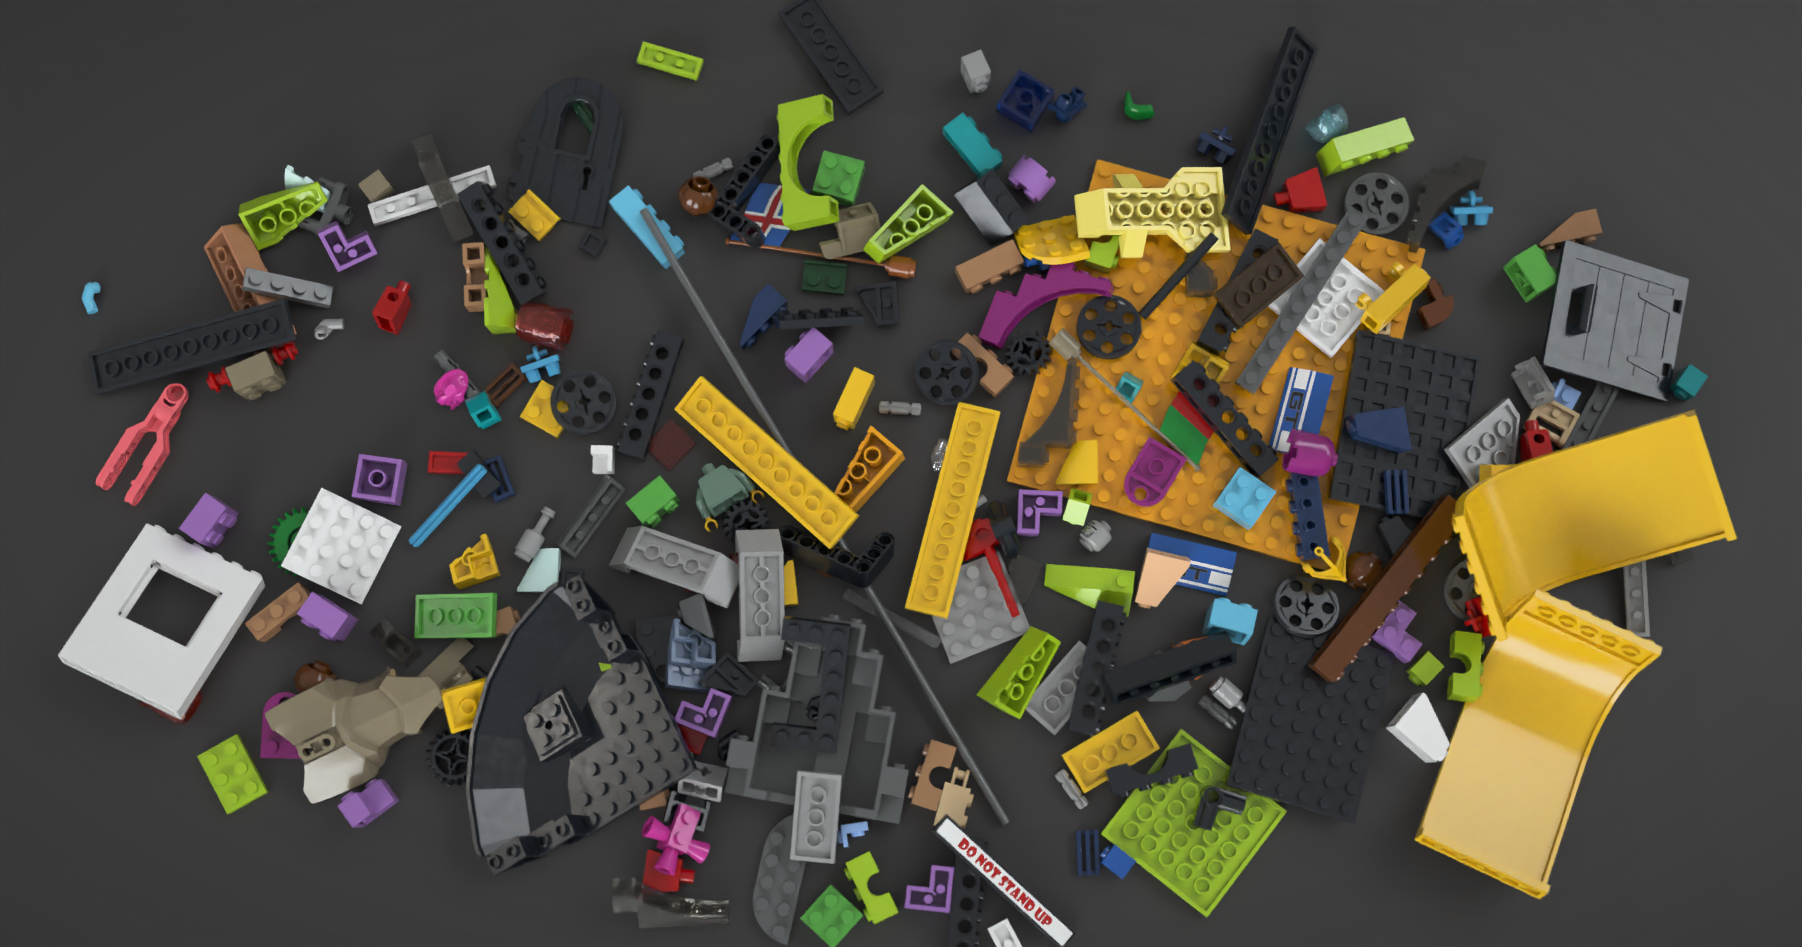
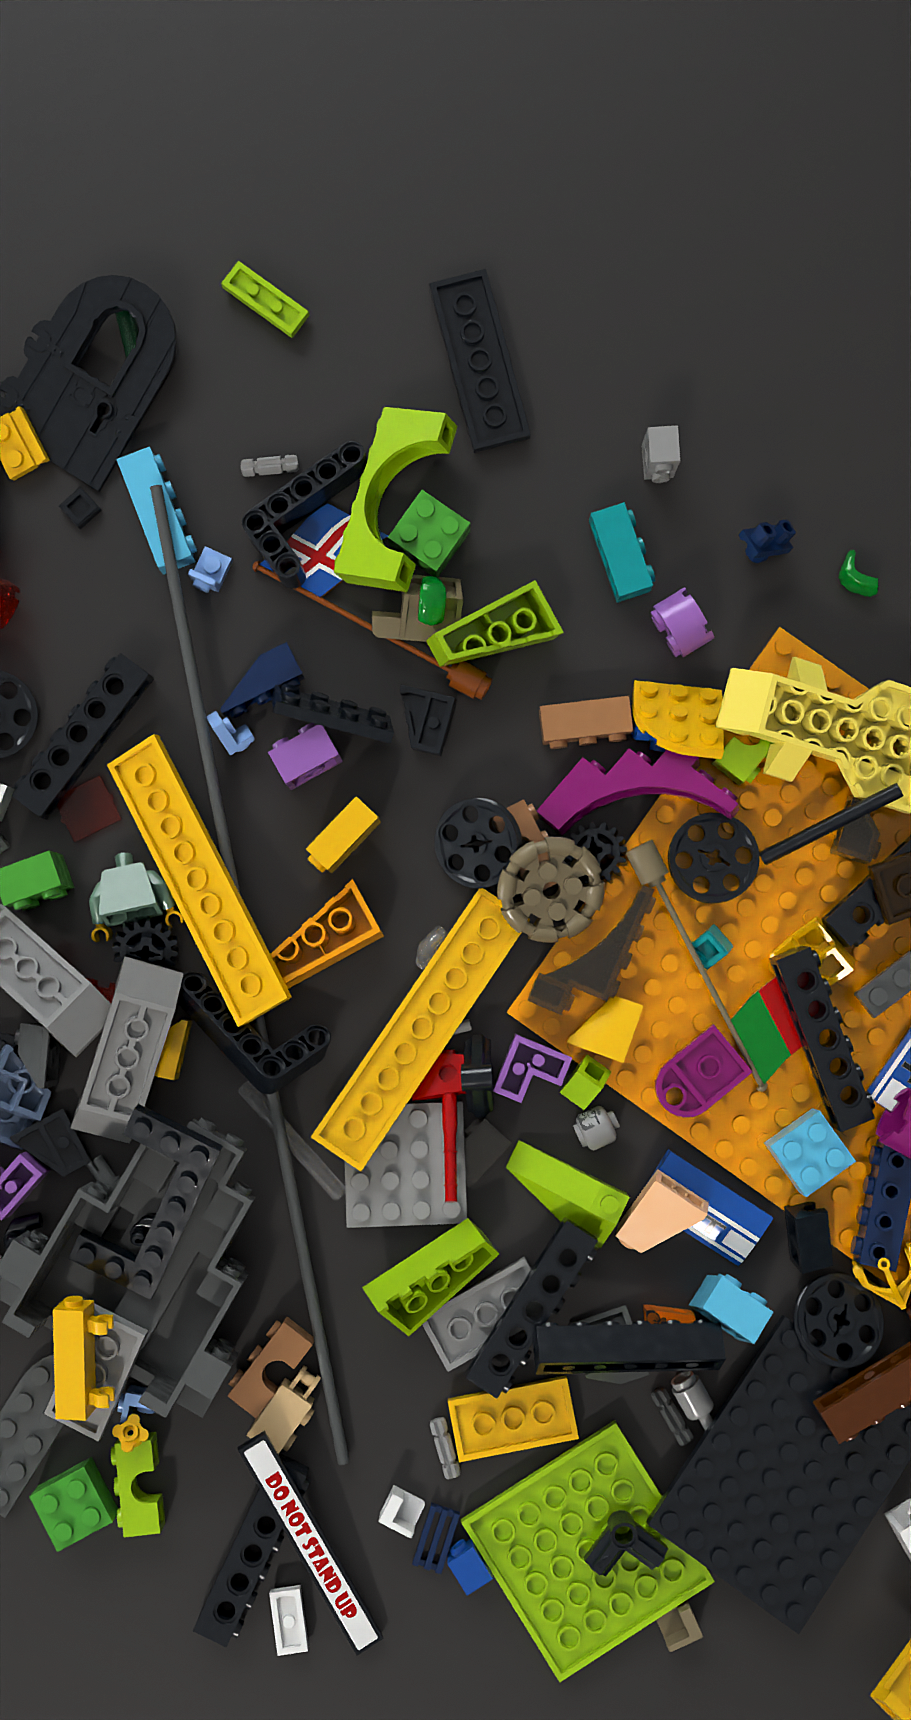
camera: 20 degrees right, 5 degrees up
(697, 195) = (235, 492): reddish brown plant -> none
(697, 254) = (210, 570): none -> light blue bracket
(752, 361) = (232, 739): none -> light blue bracket
(800, 808) = (75, 1359): none -> yellow brick
(824, 277) = (365, 658): dark green plate -> none
(855, 856) = (139, 1435): none -> yellow plate
(857, 222) = (431, 601): none -> green hair
(899, 408) = (401, 866): light grey axle -> none
(936, 896) = (213, 1527): medium lavender brick -> none
(991, 206) = (615, 641): black slope -> none
(1018, 391) = (563, 902): none -> dark tan plate
(1025, 100) = (712, 515): clear blue brick -> none
(1057, 841) = (401, 1511): none -> white panel
(1177, 762) = (593, 1471): black arch -> none
(1265, 557) = (808, 1237): none -> black hinge
(1273, 850) = (679, 1627): none -> dark tan panel

